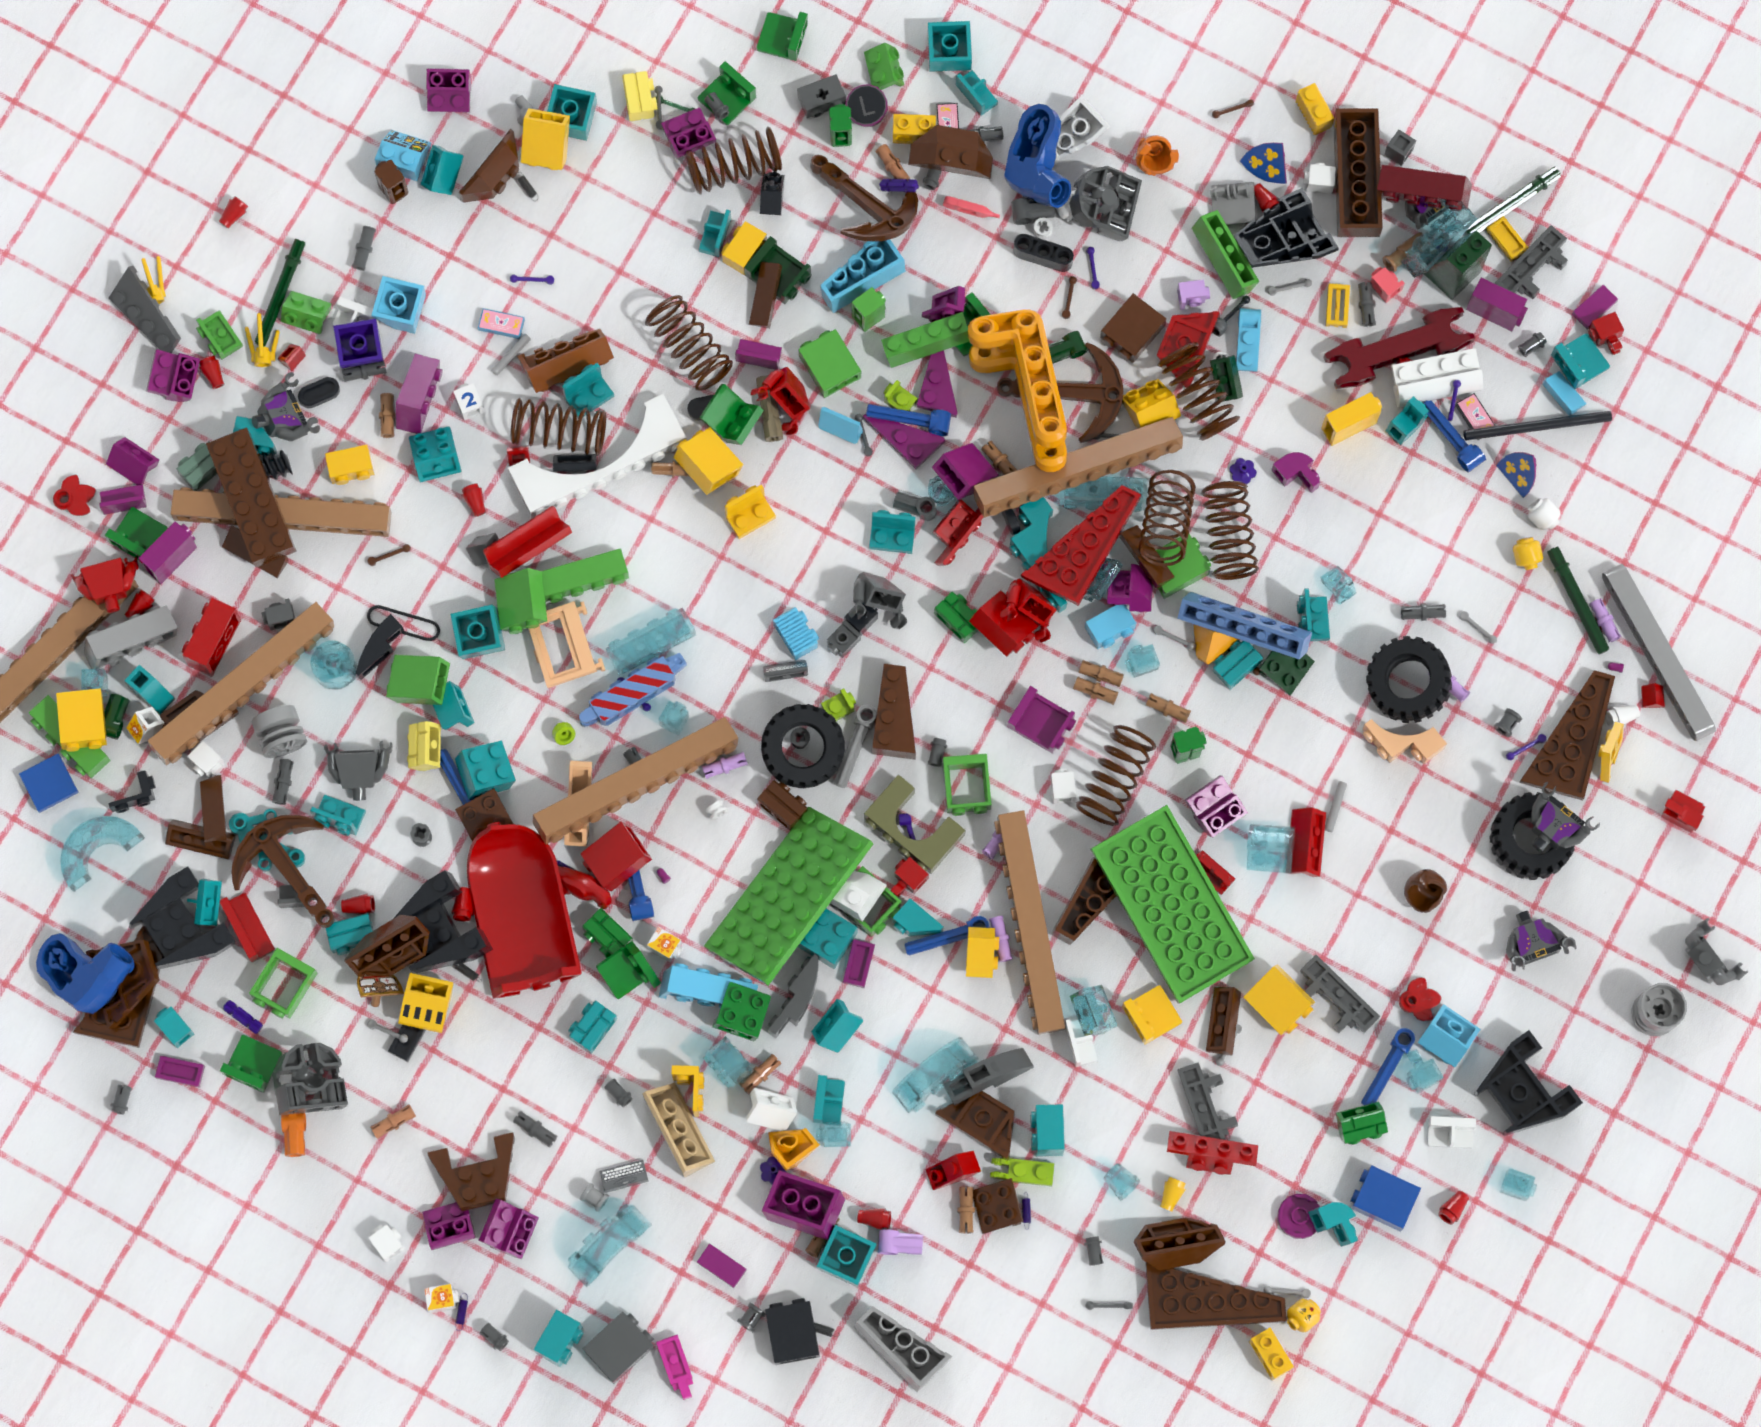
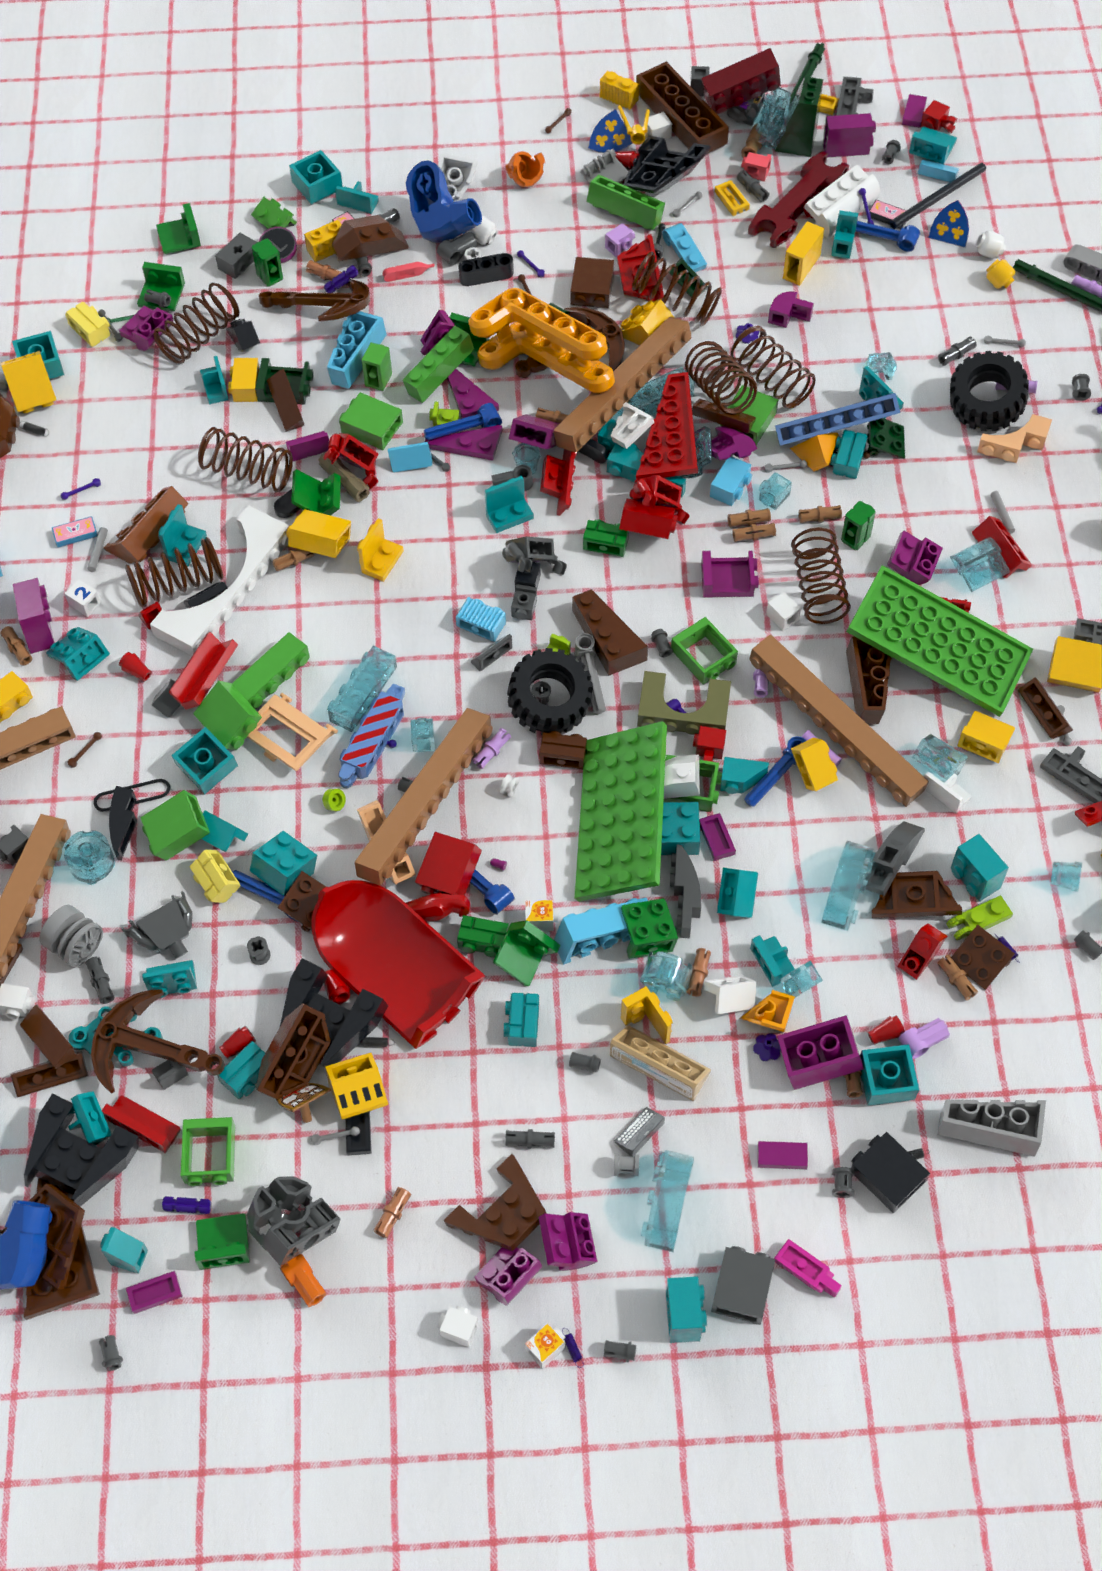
camera: 30 degrees left, 15 degrees down
(1051, 518) = (630, 425): none -> white wing
(1120, 187) = (514, 203): dark grey connector -> none
(1292, 178) = (637, 132): none -> yellow plant

